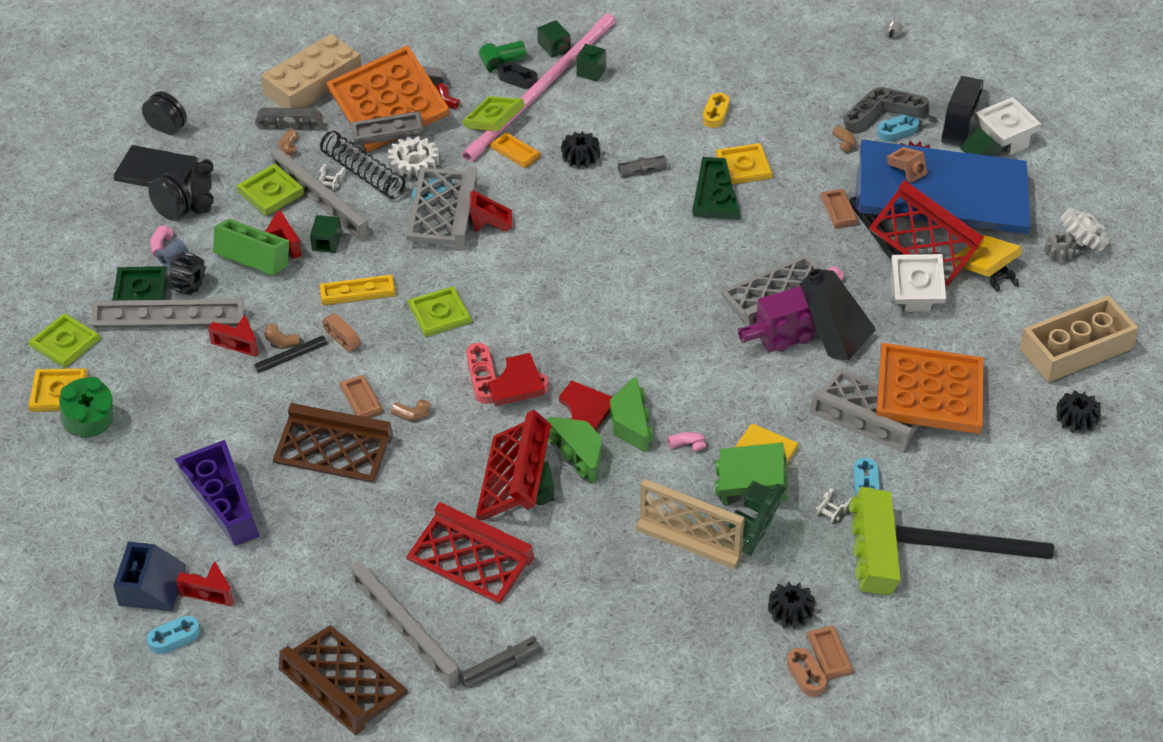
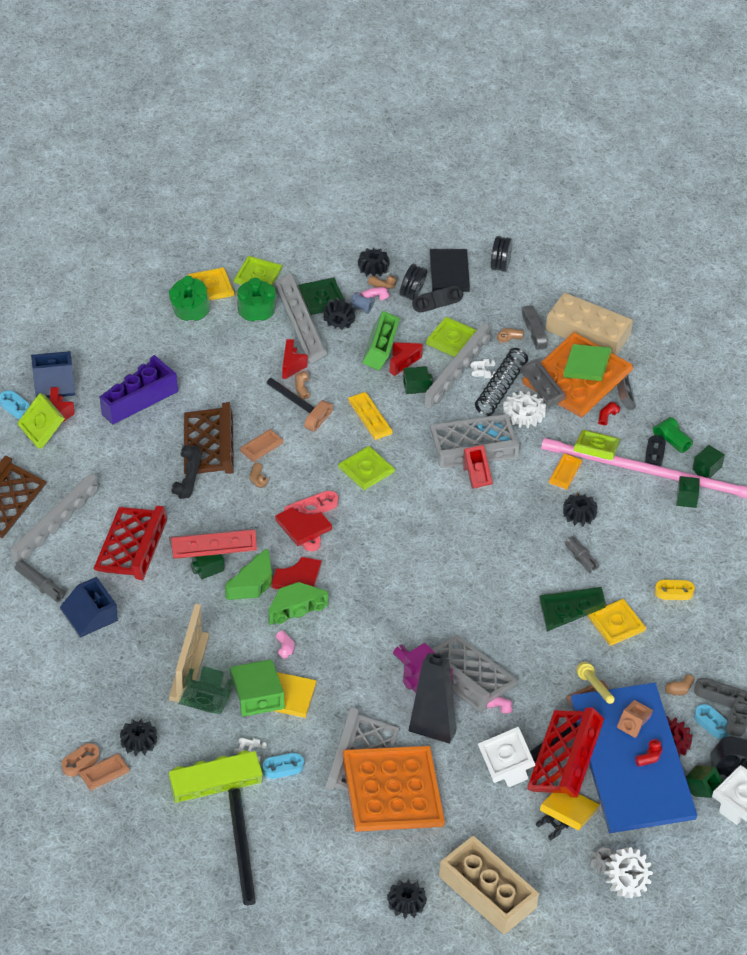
camera: 70 degrees right, 0 degrees up
(110, 227) = (373, 262): none -> black gear
(119, 346) = (256, 300): none -> green brick
(147, 229) = (389, 283): none -> medium nougat arm
(229, 604) = (40, 421): none -> lime tile
(384, 80) = (587, 362): none -> bright green tile
(385, 469) = (193, 457): none -> black piece
(573, 612) = (89, 607): none -> dark blue slope
(808, 200) = (586, 672): none -> light yellow piece
(953, 166) = (652, 754): none -> red arm

